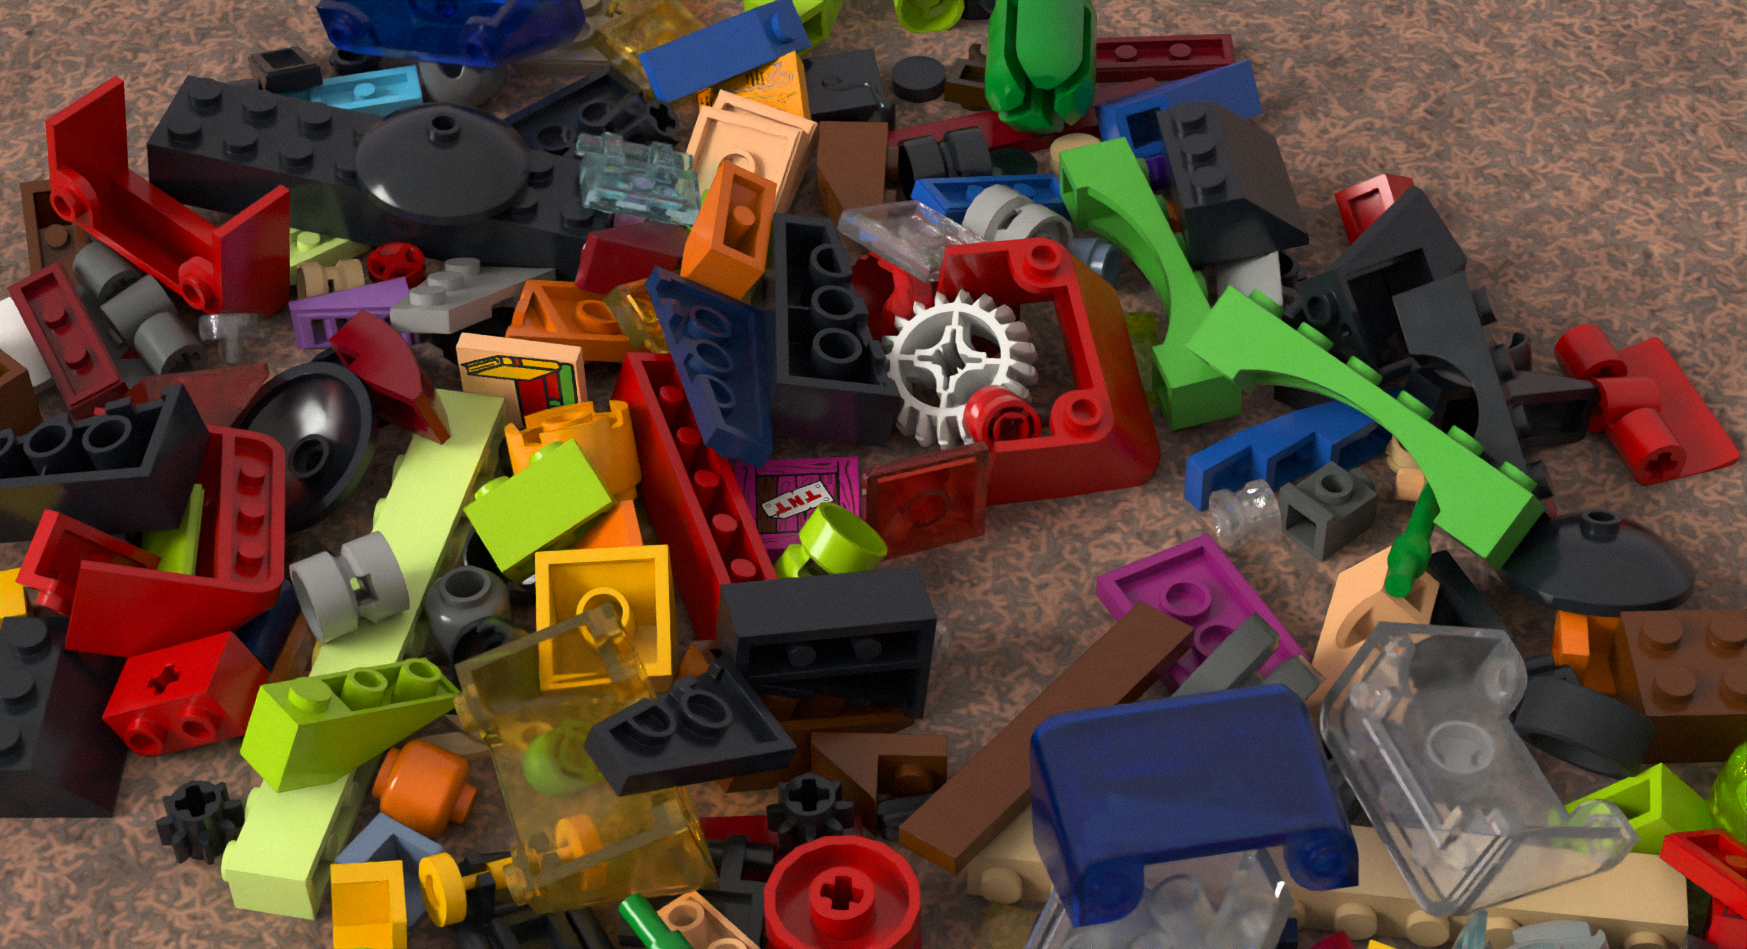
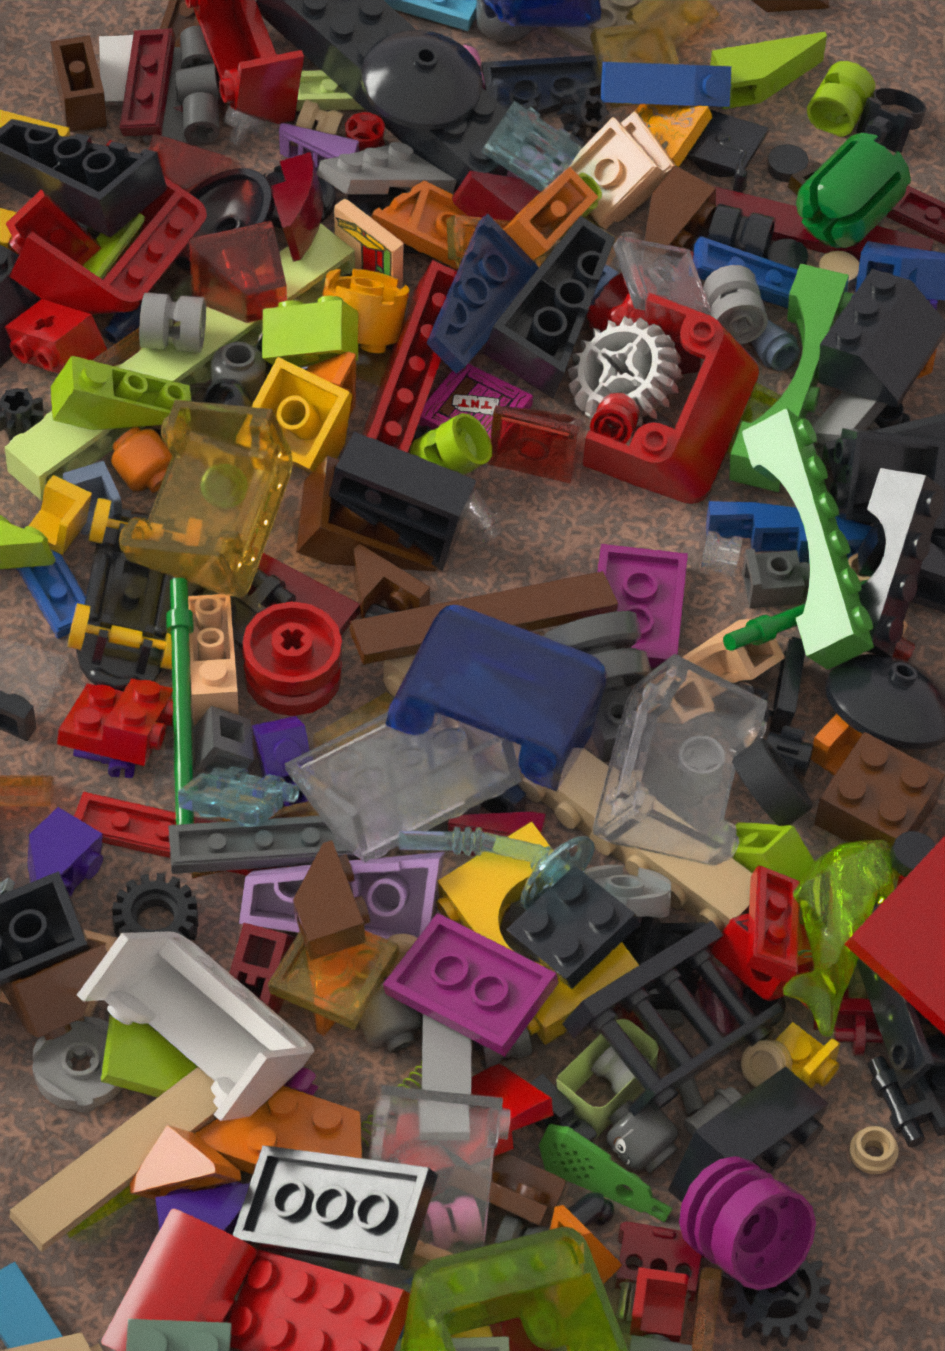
camera: 30 degrees right, 10 degrees up
(398, 478) = (239, 271): none -> clear red slope
(691, 735) = (272, 509): black wing -> none
(808, 810) = (322, 588): black gear -> none

